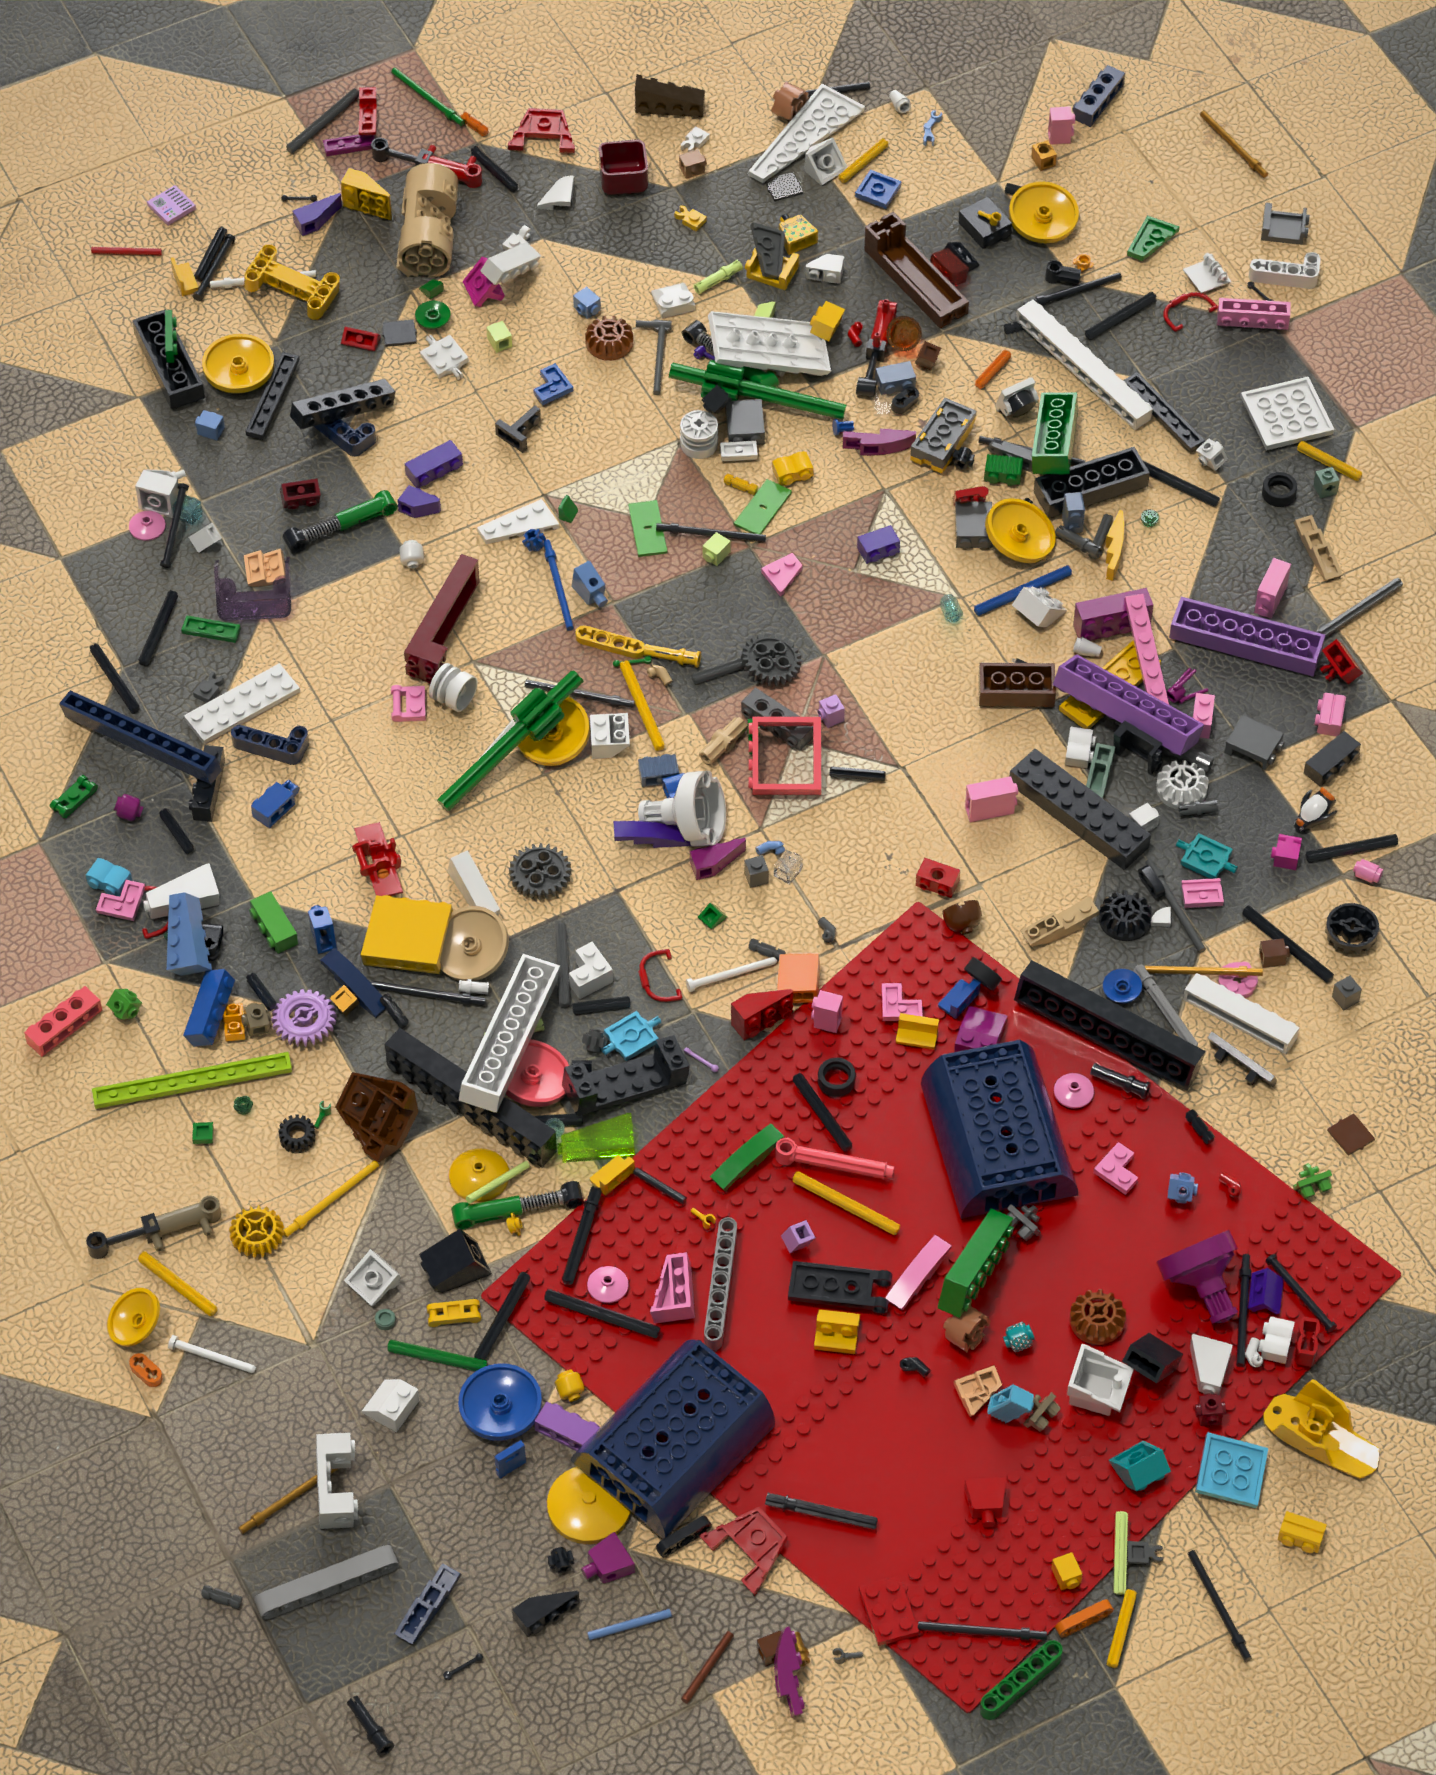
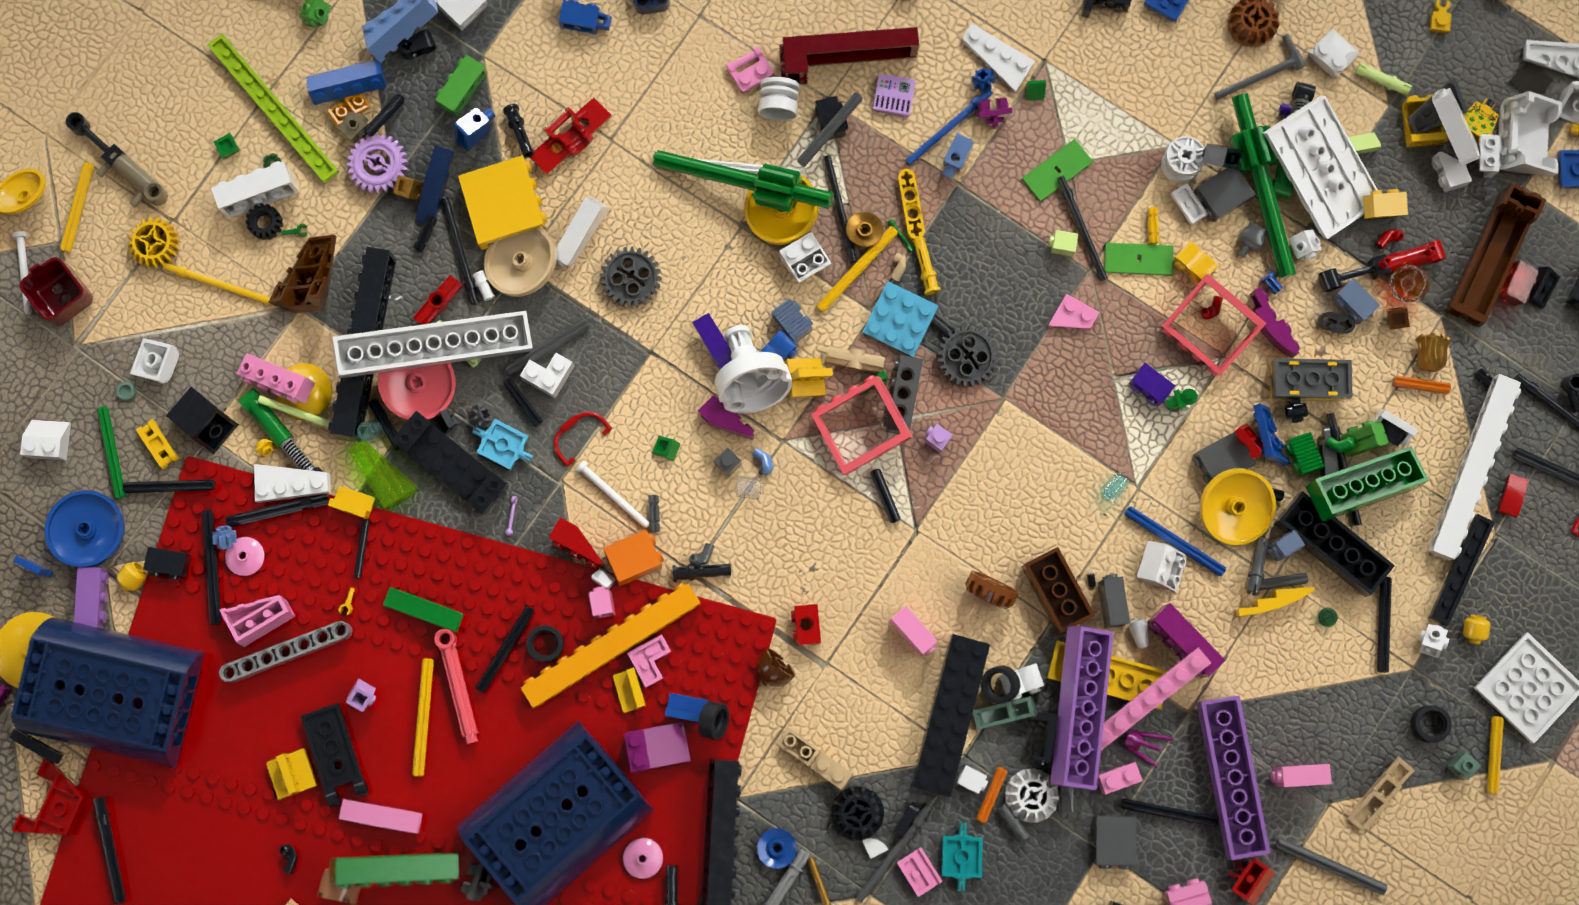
camera: 60 degrees right, 25 degrees up
(254, 1312) = (39, 291): none -> dark red piece
(264, 1121) = (258, 187): none -> white brick
(339, 894) = (516, 123): none -> black pin
(457, 1179) = (275, 378): none -> bright pink brick
(463, 1019) = (446, 292): none -> red piece
(494, 663) = (826, 110): none -> black brick
(503, 611) = (894, 95): none -> lavender tile
(507, 661) = (829, 129): none -> dark grey axle
(561, 1215) = (286, 483): none -> white wing
(570, 547) = (985, 111): none -> magenta hips
(576, 1345) = (167, 562): none -> black brick
(581, 1285) = (224, 537): none -> medium blue gear
(611, 681) = (868, 222): none -> pearl gold dish
(707, 691) = (900, 319): none -> medium azure plate
(727, 780) = (807, 377): none -> yellow bracket
(794, 241) = (1456, 126): none -> white slope
(796, 421) = (1252, 238): none -> dark grey piece
(803, 1010) = (603, 578): none -> white slope
(819, 387) = (1305, 245): none -> white brick
(826, 209) = (1525, 132): none -> white windscreen
(830, 236) = (1489, 155): none -> white bracket
(838, 943) = (691, 572): none -> black pin
(841, 476) = (1214, 310): none -> red arm
(850, 449) = (1197, 354): none -> coral window
(869, 1027) = (610, 646): none -> light orange brick
(905, 527) = (1182, 399): none -> green hips
(953, 483) = (1267, 428): none -> blue wing
(970, 347) = (1432, 351): none -> pearl gold piece
(988, 726) = (991, 590): none -> dark orange gear
(1013, 437) = (1340, 446): none -> green arm
(1015, 420) = (1366, 438): none -> bright green brick
(1048, 646) = (1113, 601): none -> dark grey brick
(1074, 741) = (1014, 684): none -> black tyre
(1123, 352) = (1513, 495): none -> red slope
(1170, 818) = (991, 795): none -> orange axle
(1218, 424) = (1476, 628): none -> yellow head
(1252, 697) = (1169, 812): none -> black axle

